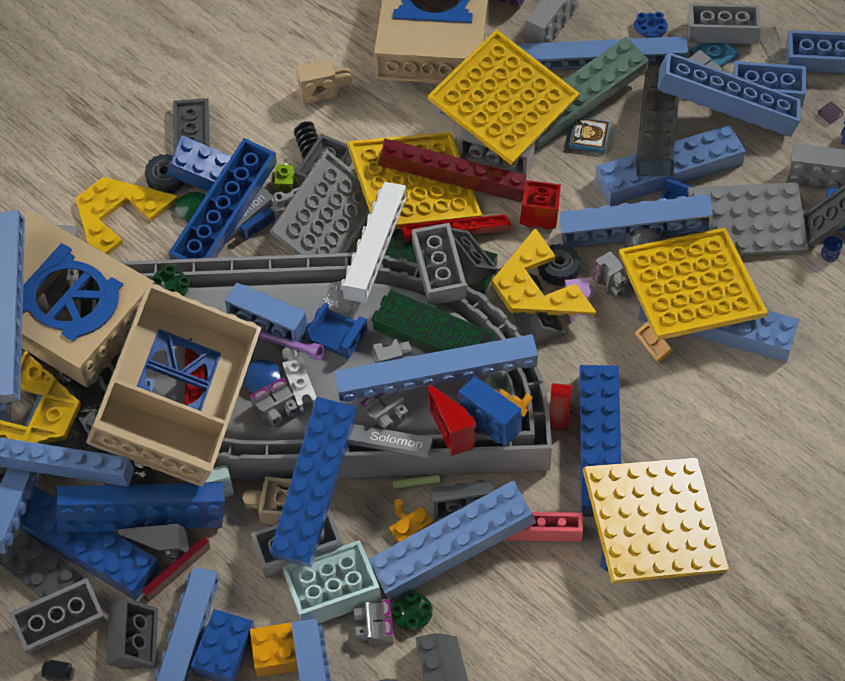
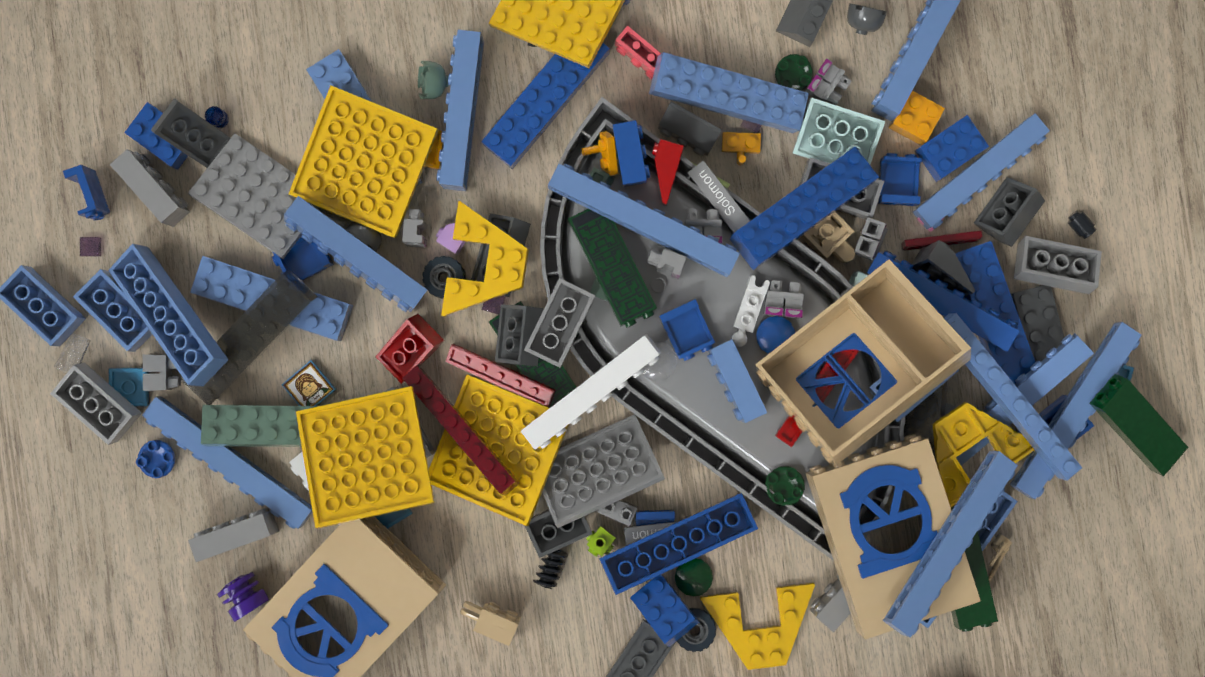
camera: 145 degrees left, 30 degrees up
(238, 518) = (871, 239): none -> light grey hips
(249, 590) = (899, 179): none -> blue panel
(314, 350) = (724, 316): medium lavender piece -> none
(560, 406) = (559, 137): red beam -> none
(655, 378) = (461, 110): none -> medium blue brick
(698, 385) = (431, 80): none -> sand green cylinder

